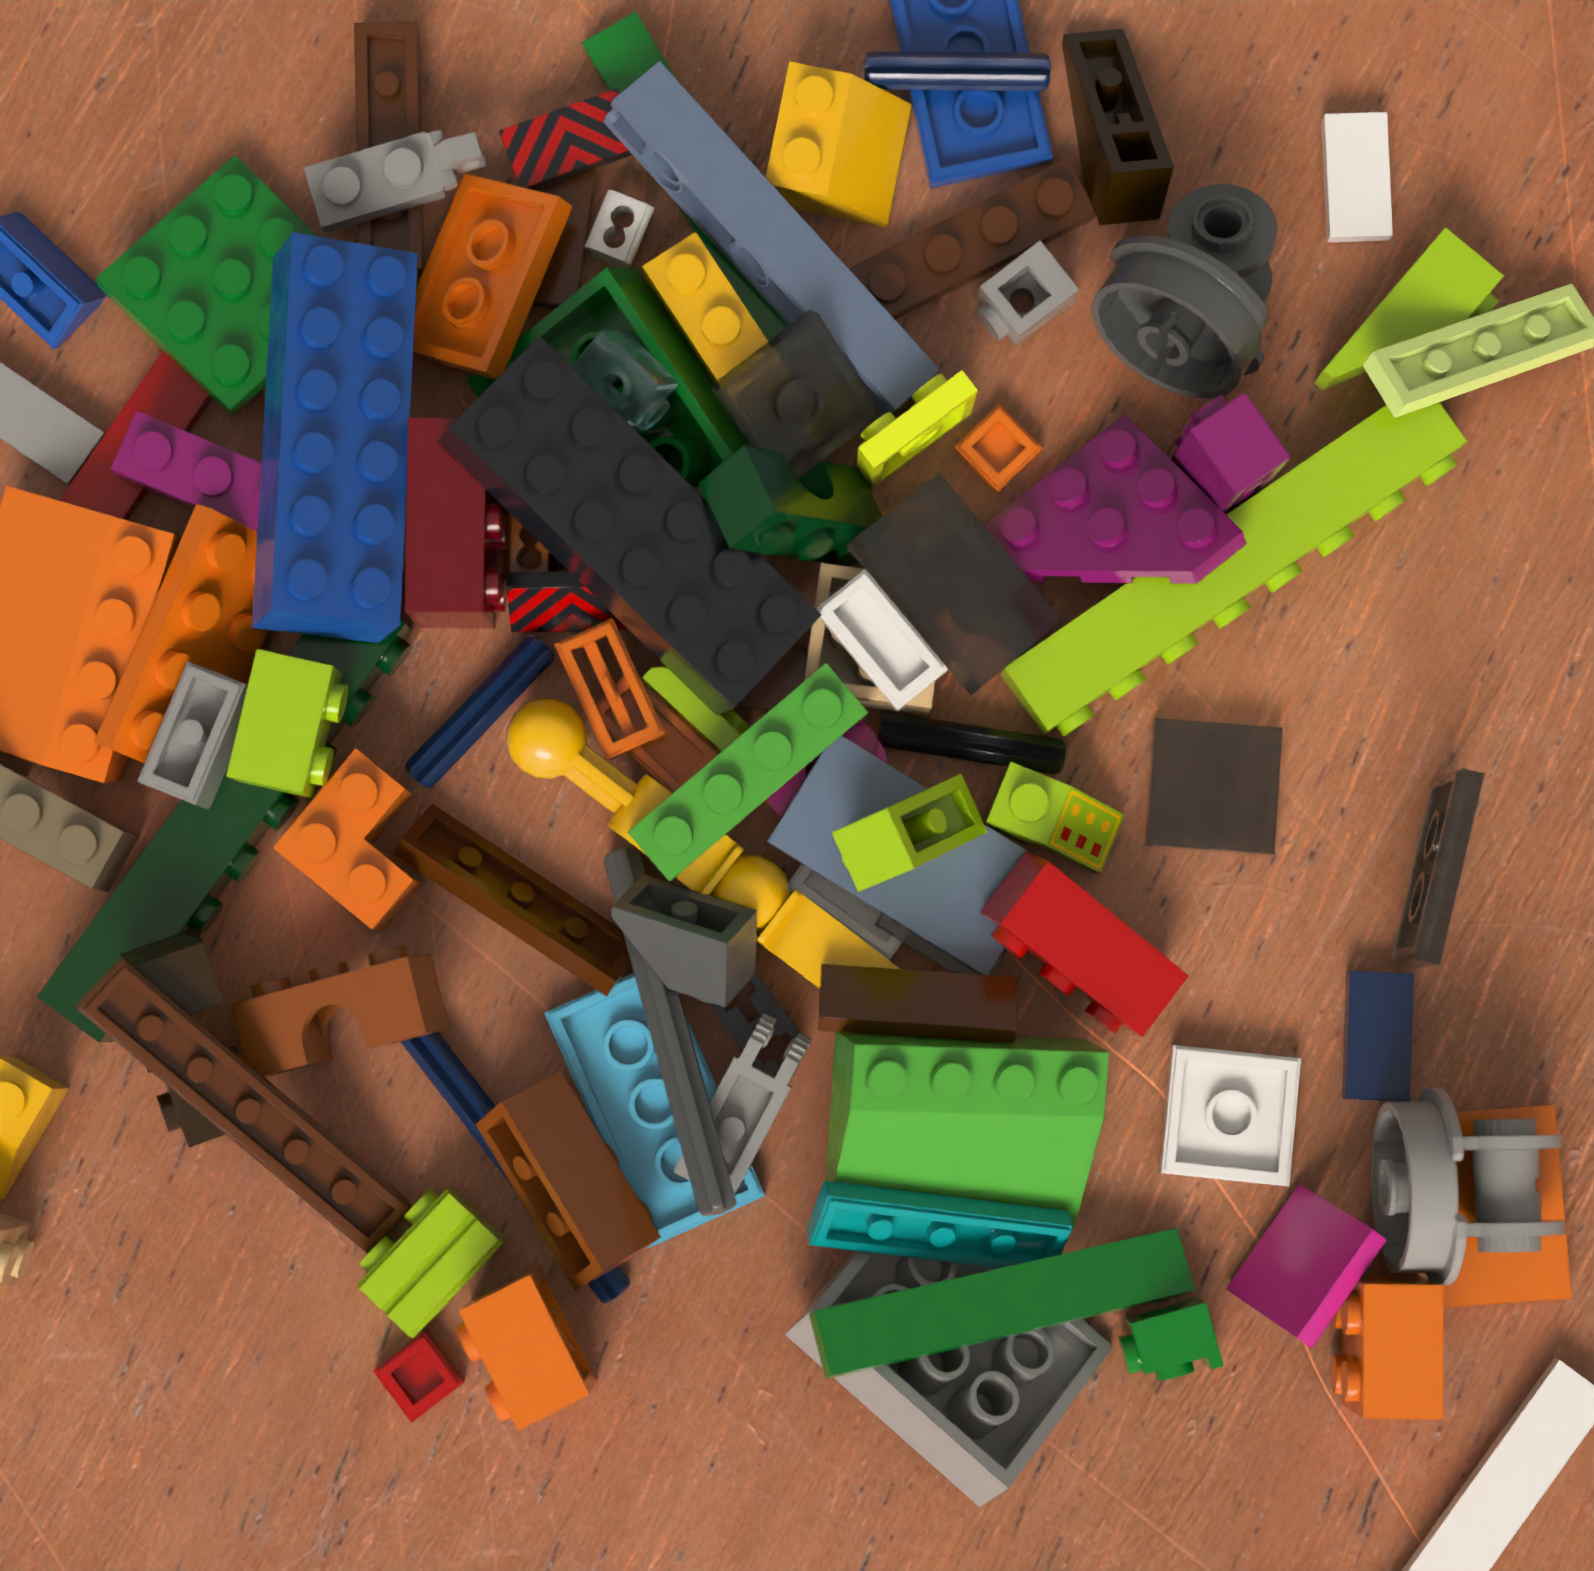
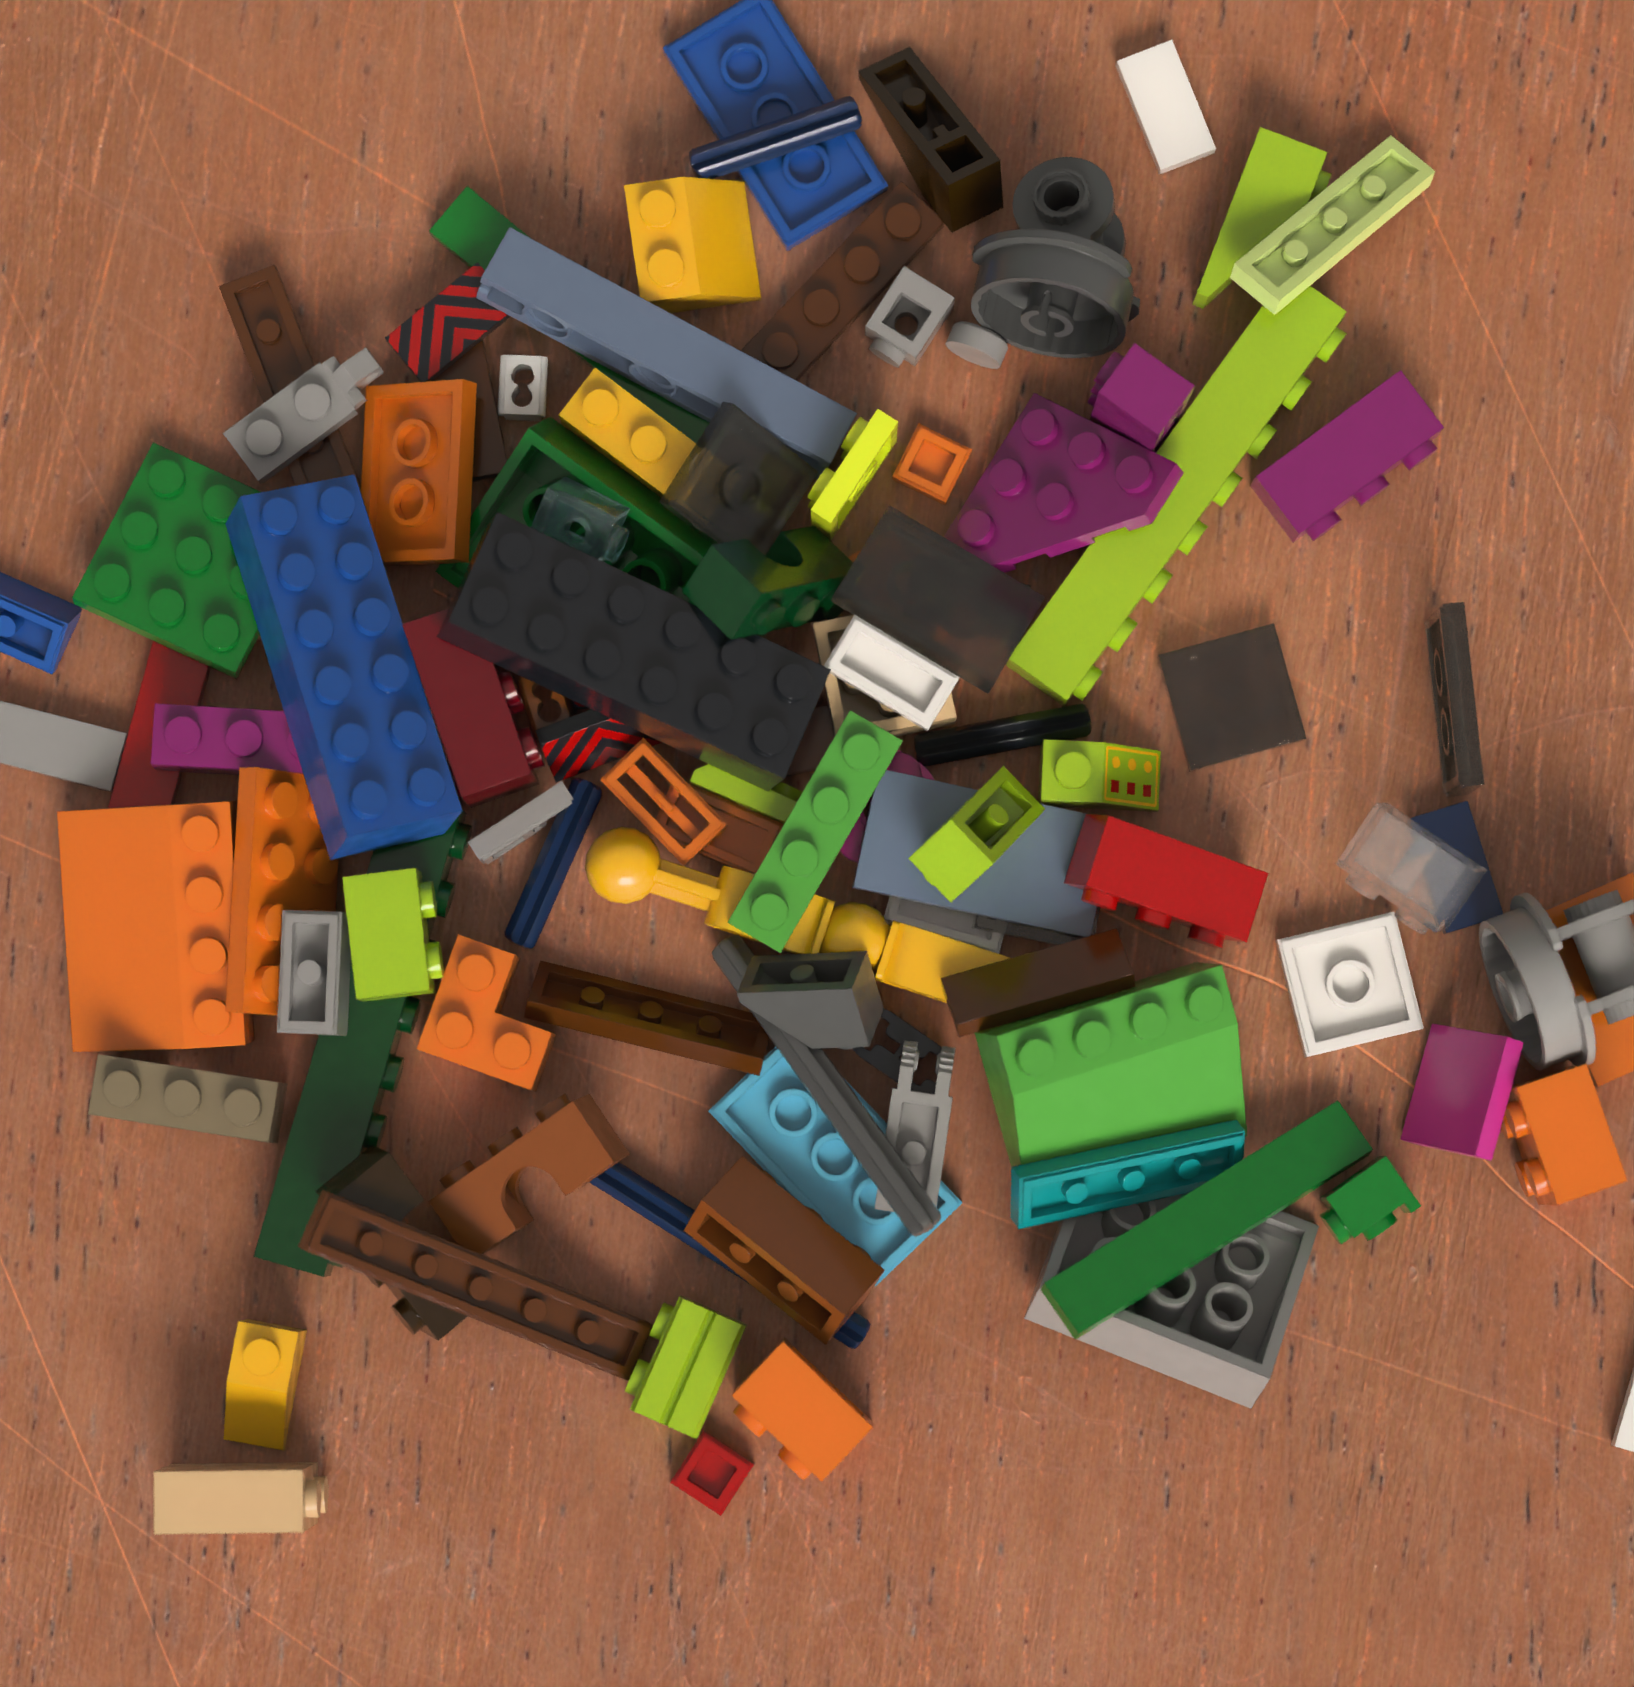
camera: 15 degrees left, 0 degrees up
(458, 661) = (520, 824): none -> light grey tile
(1085, 345) = (977, 344): none -> light grey tile
(1331, 1022) = (1409, 869): none -> clear brick
(1416, 590) = (1348, 459): none -> magenta brick

